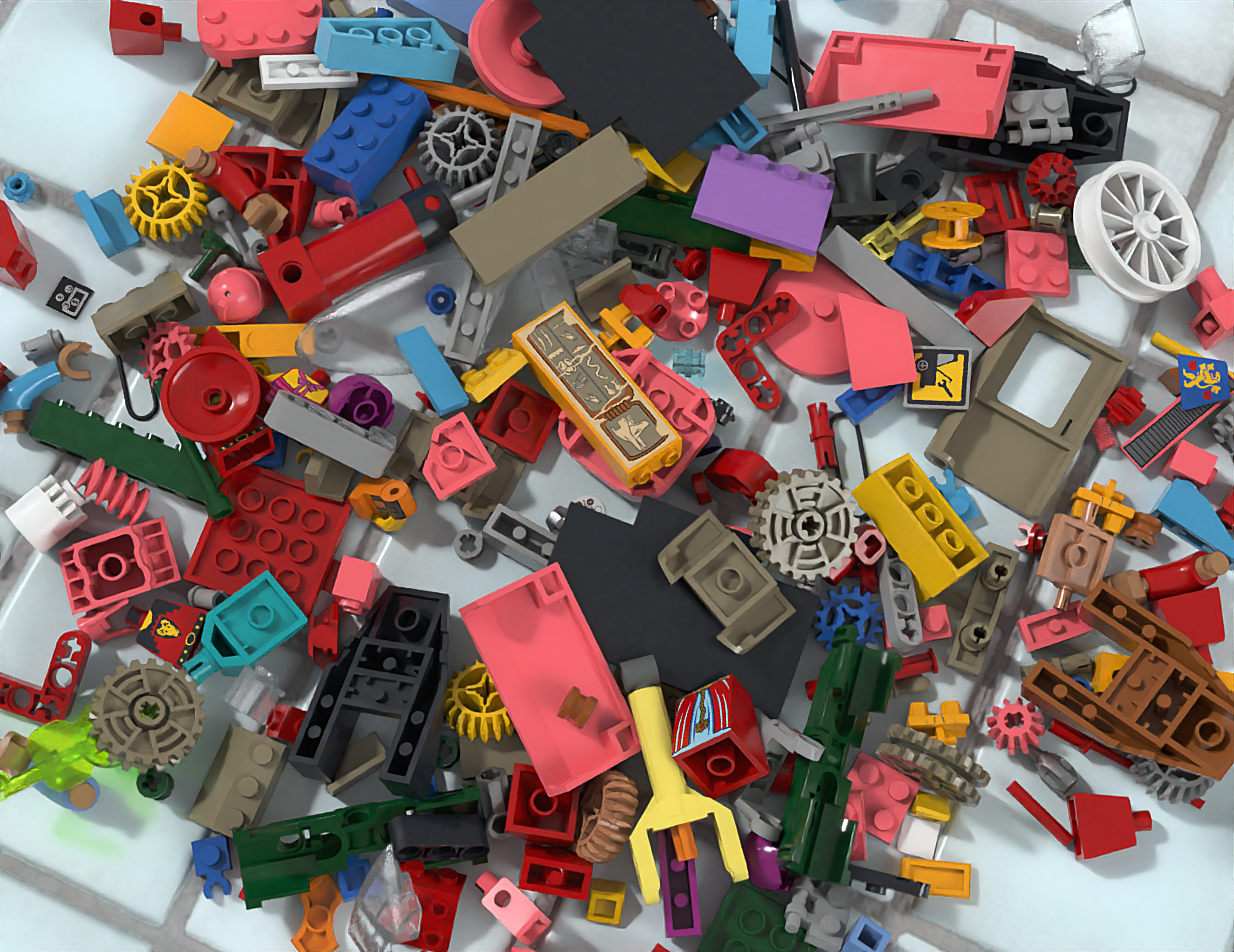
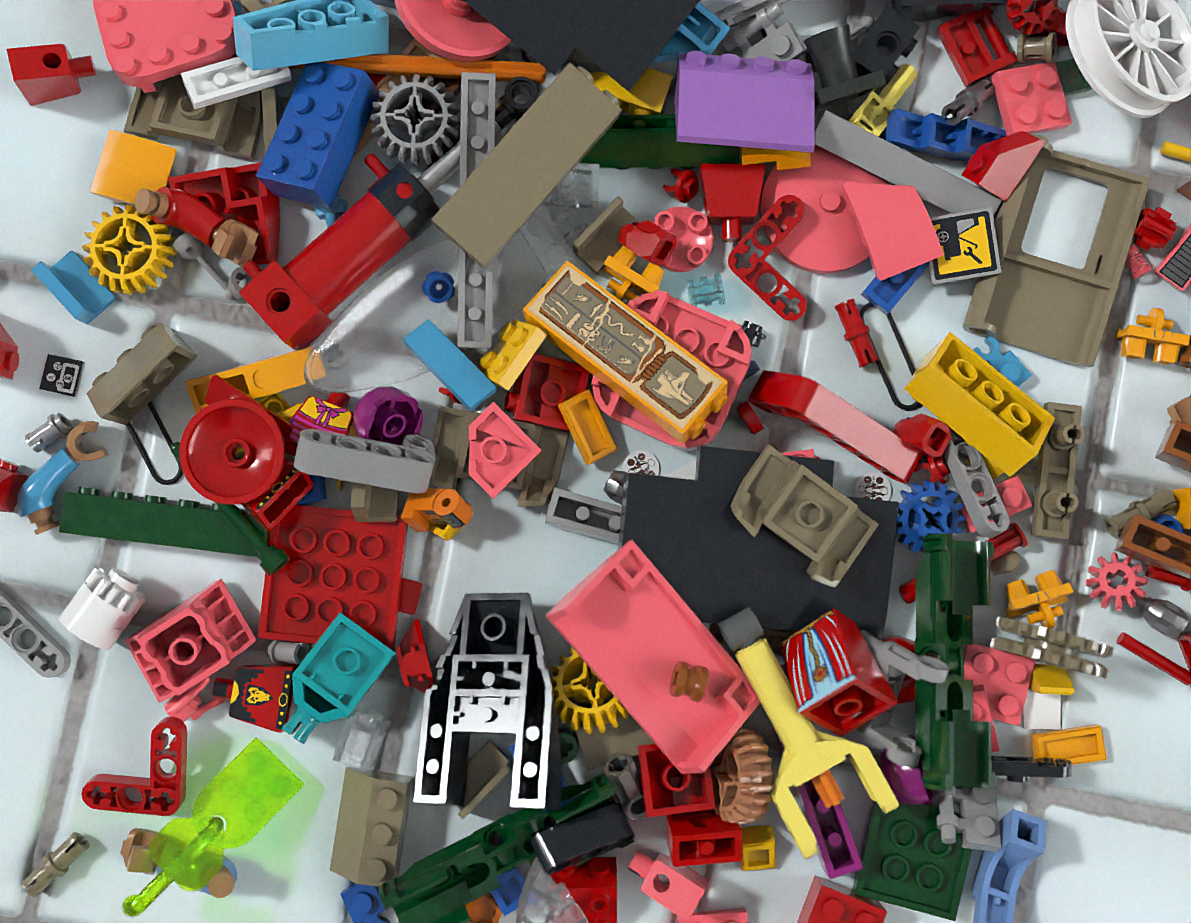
camera: 10 degrees left, 10 degrees up
(114, 490) = (163, 568): coral piece -> none
(141, 740) = (260, 762): dark tan piece -> none
(163, 351) = (174, 413): coral gear -> none
(164, 788) = (280, 855): dark green bush -> none
(216, 246) = (193, 286): dark green plant -> none
(248, 296) = (240, 331): coral helmet -> none
(284, 722) = (400, 755): red bracket -> none
(332, 213) = (303, 223): coral piece -> none
(357, 585) = (434, 606): coral brick -> none
(478, 545) = (522, 534): light grey bush -> none
(545, 460) = (587, 427): none -> light orange tile
(656, 251) = (639, 179): pearl dark grey piece -> none
(779, 531) = (869, 437): dark tan piece -> none
(952, 225) = (941, 80): light orange piece -> none
(1035, 540) = (1093, 389): red plate -> none
(1052, 627) = (1129, 471): coral plate -> none
(1075, 555) = (1139, 396): nougat plate -> none

